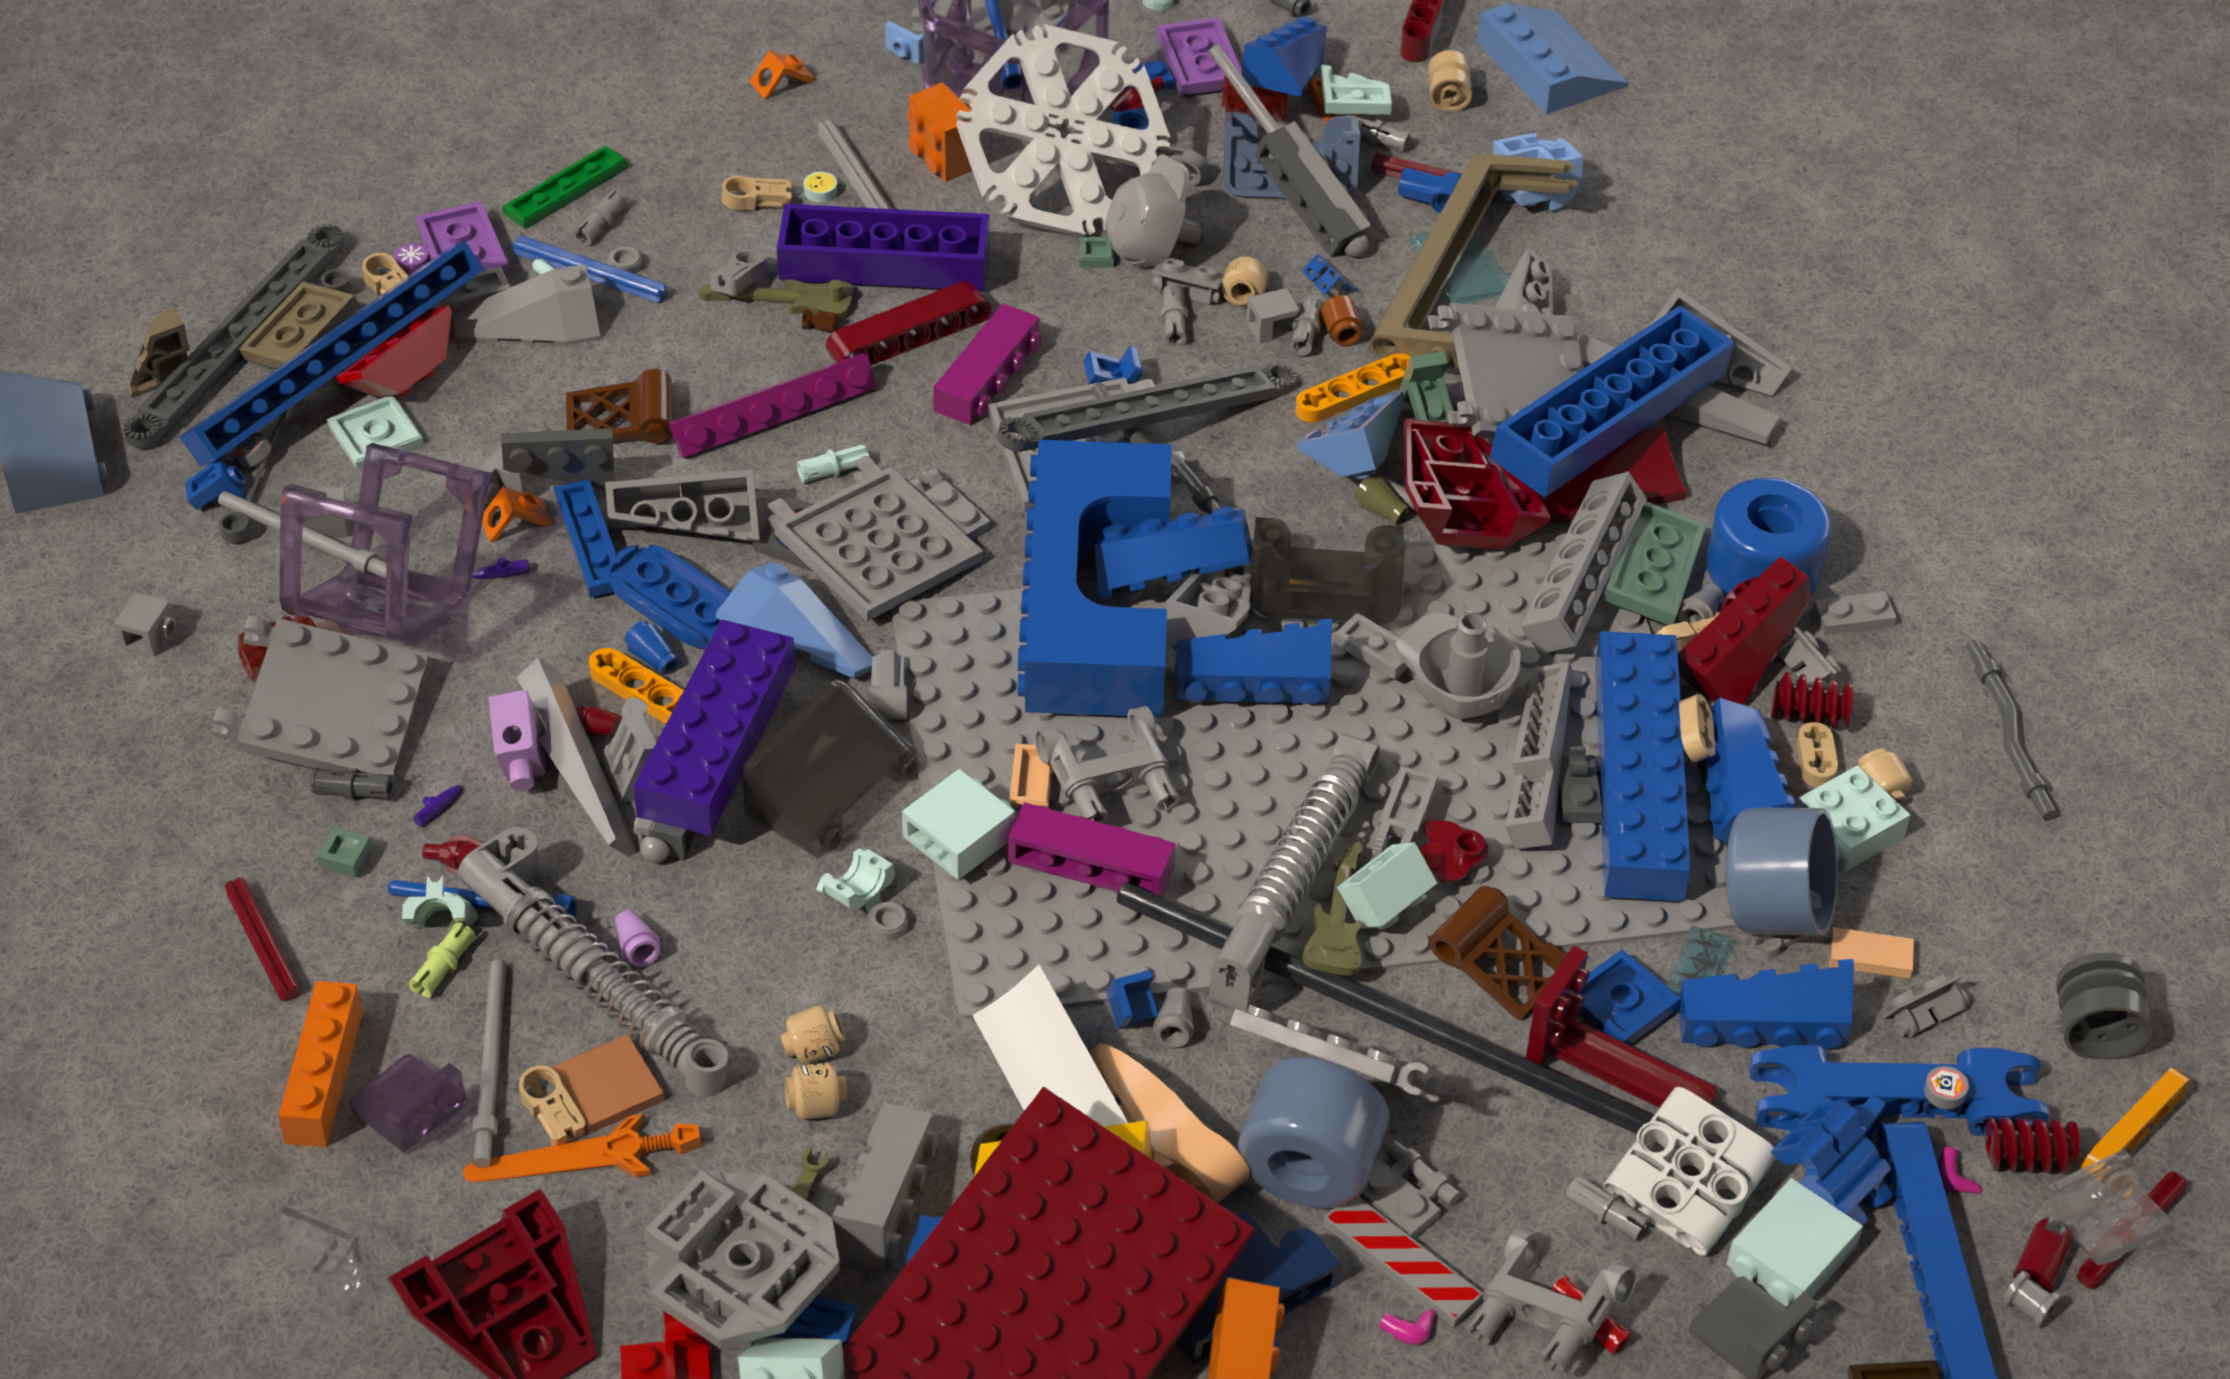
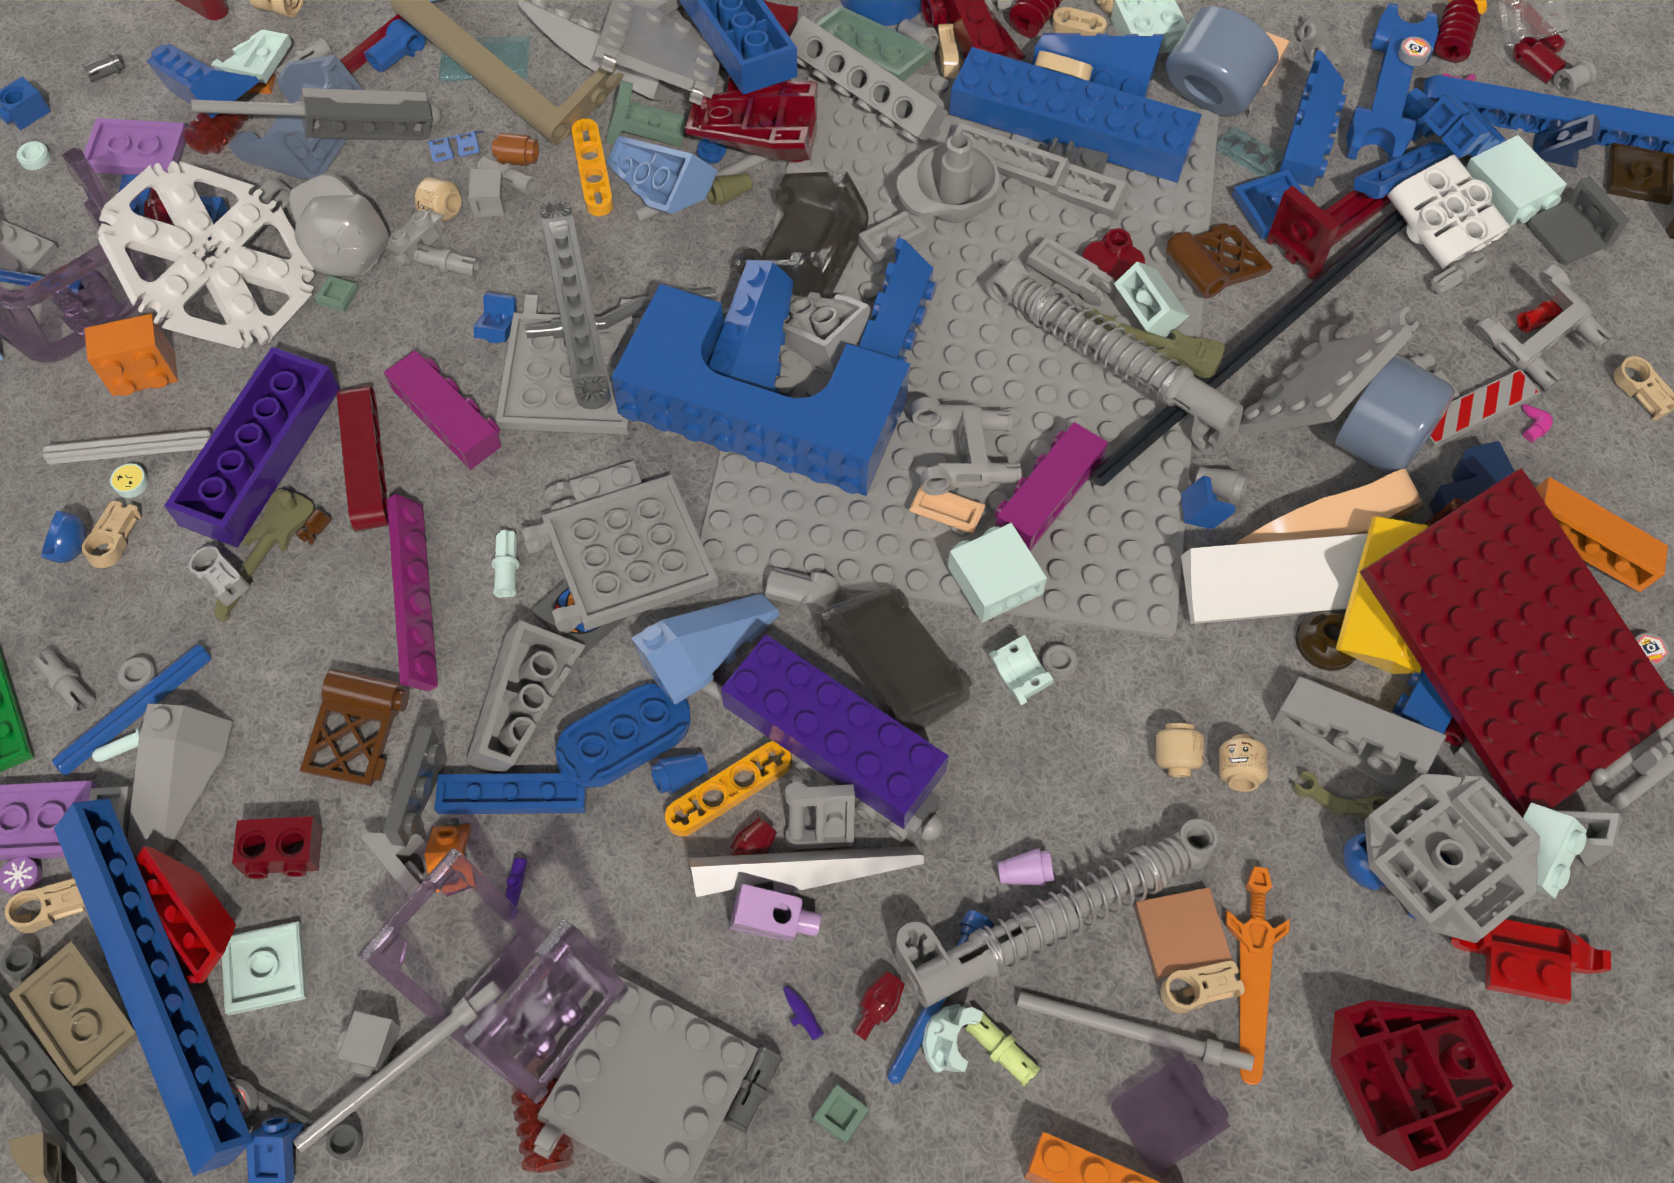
camera: 70 degrees left, 15 degrees up
(485, 399) = (280, 837): none -> dark red brick
(737, 162) = (64, 538): none -> blue hair
(1689, 1074) = (1386, 177): none -> blue plate
(1896, 1301) = (1563, 143): none -> dark blue slope

